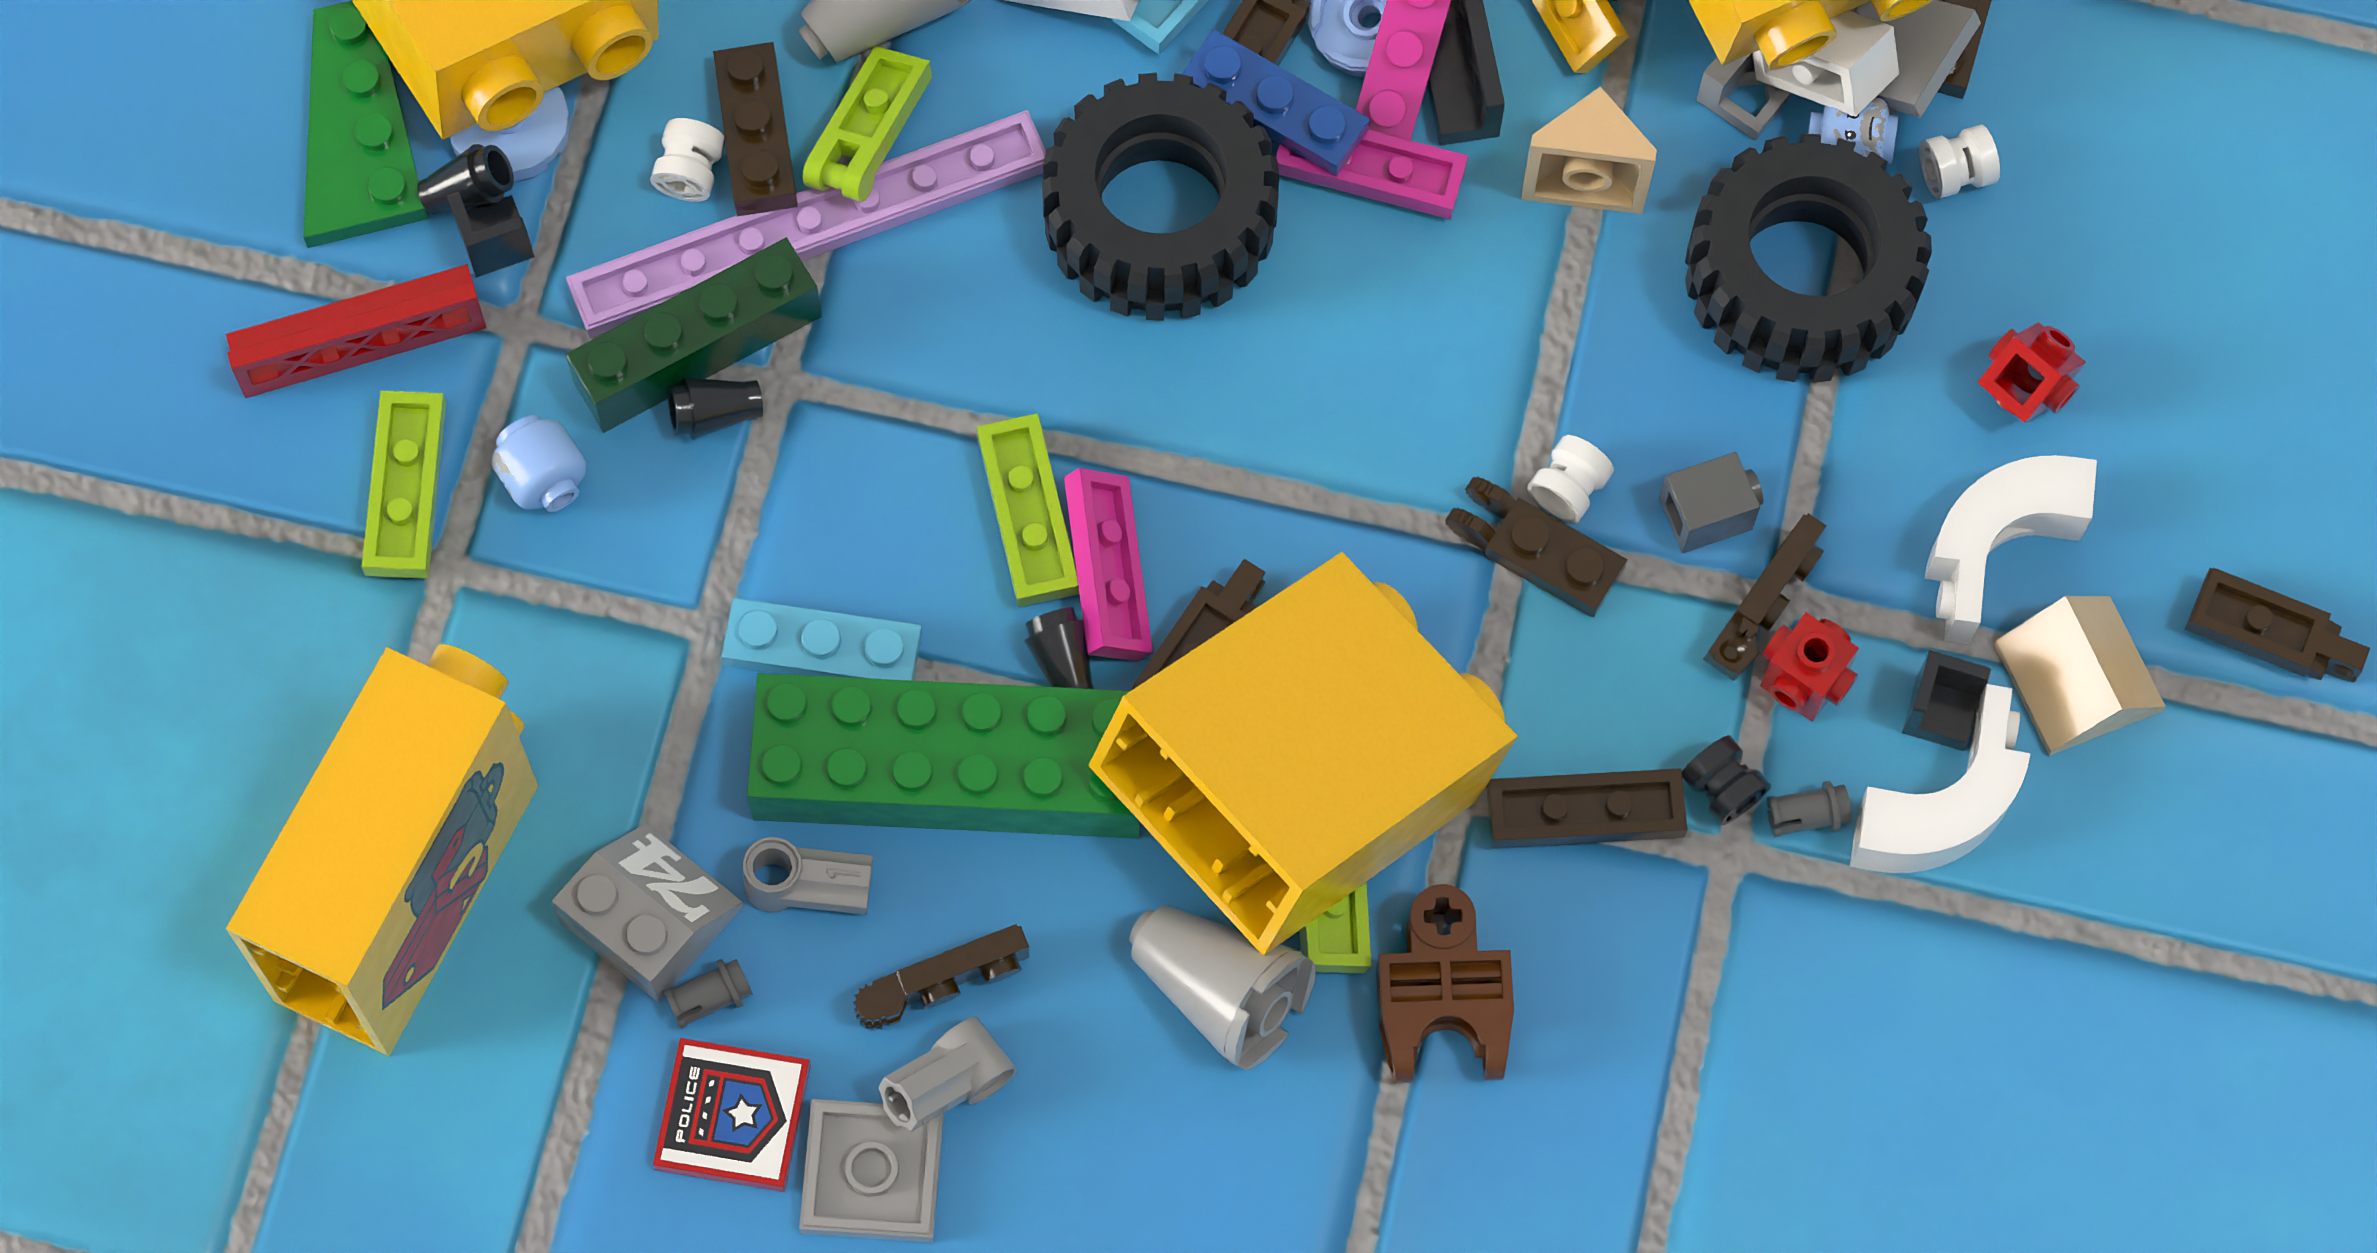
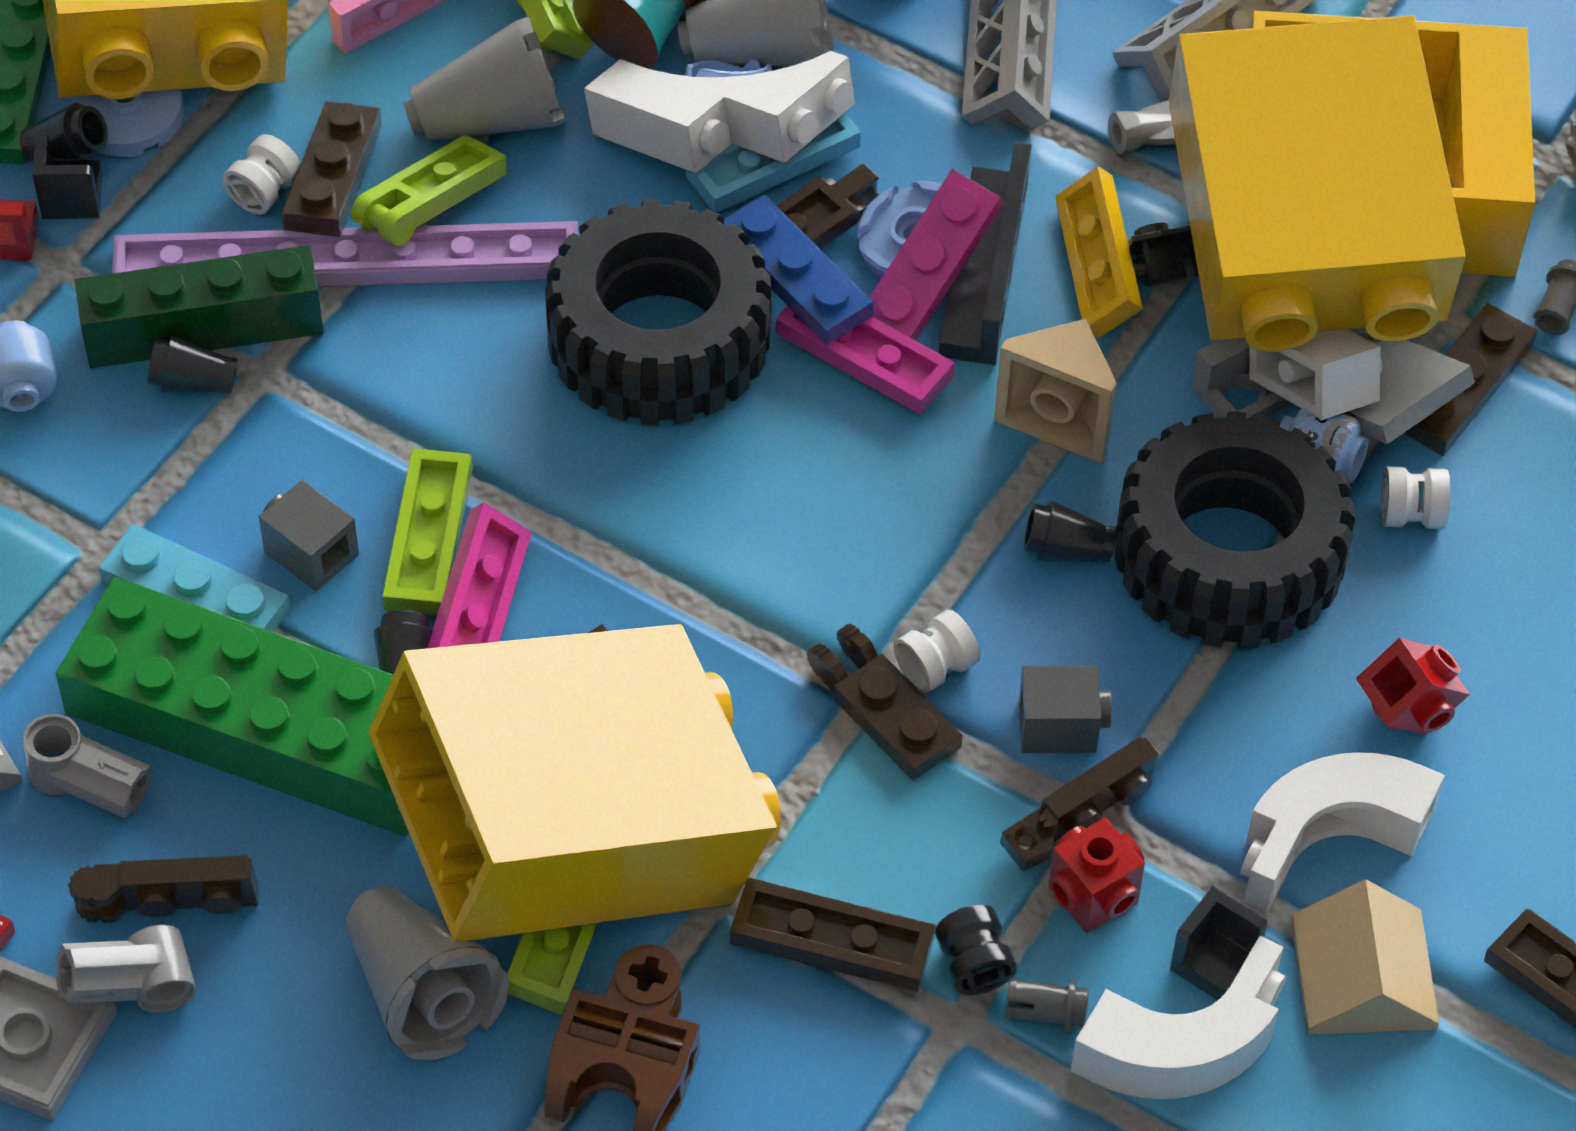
camera: 20 degrees right, 15 degrees down
(912, 553) = (308, 534): none -> dark grey brick
(1644, 310) = (1067, 535): none -> black cone

